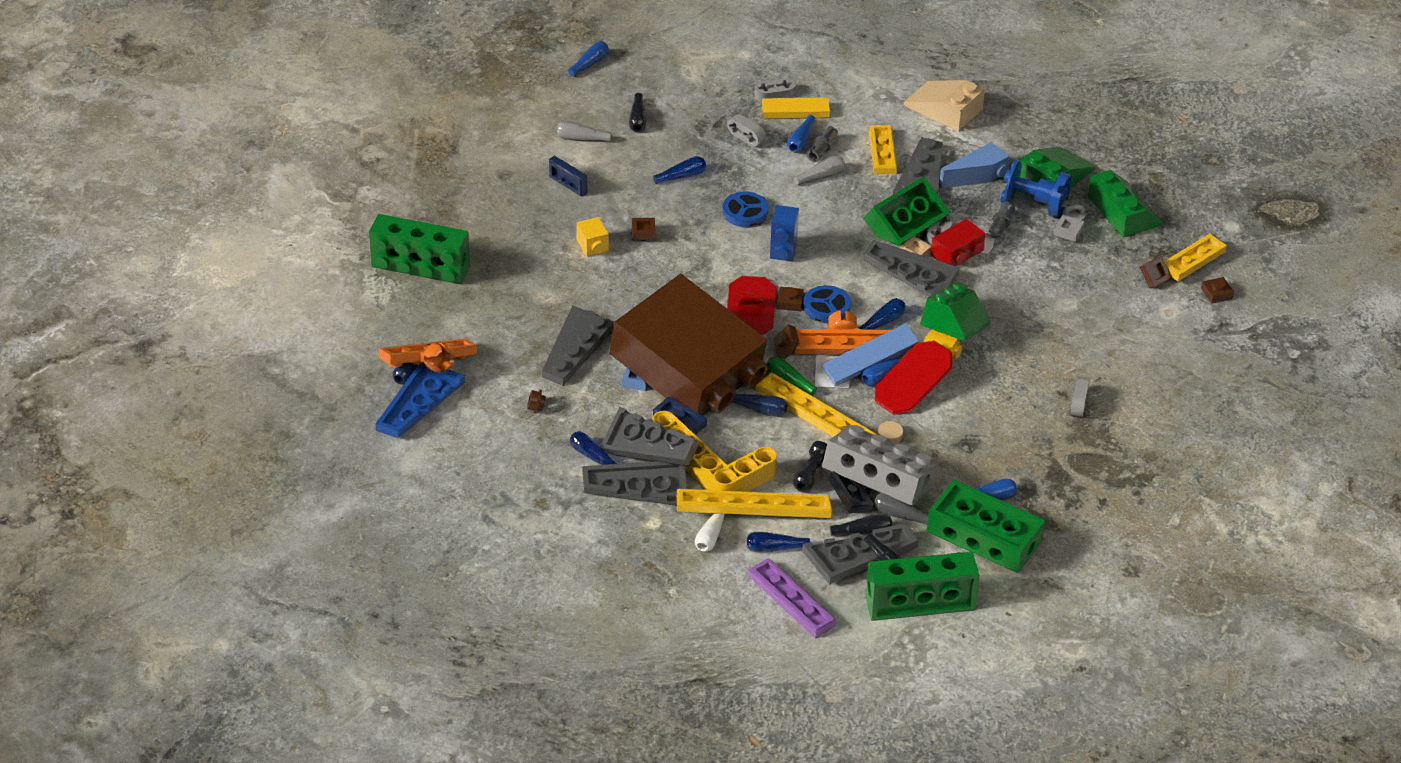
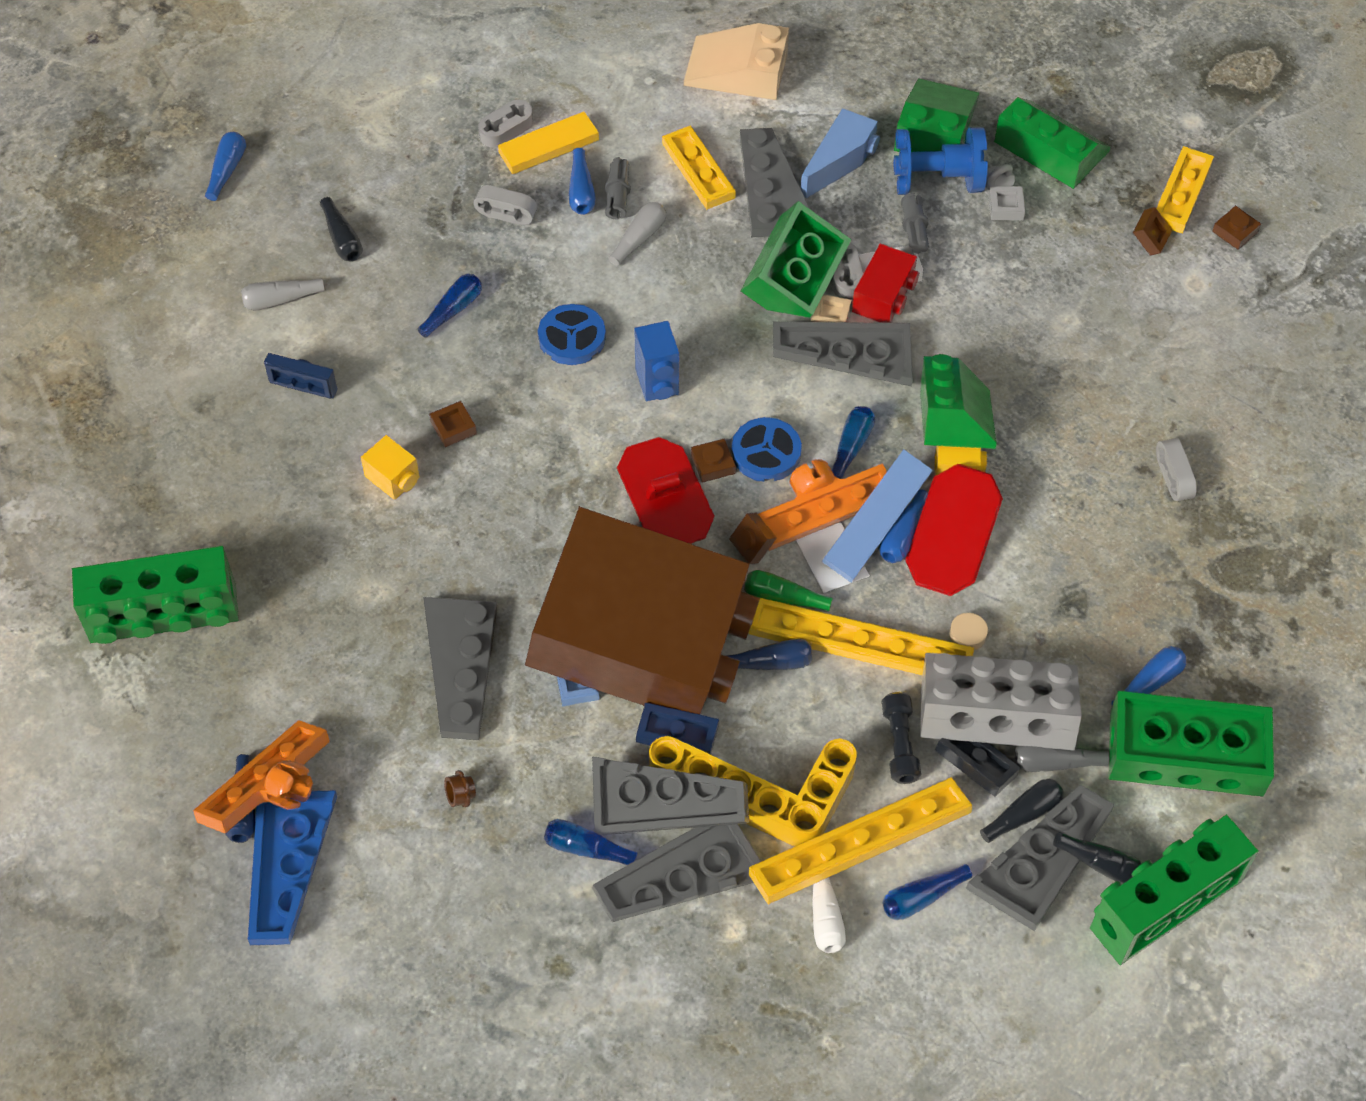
camera: 25 degrees left, 15 degrees up
(792, 598) = (997, 978): medium lavender tile -> none

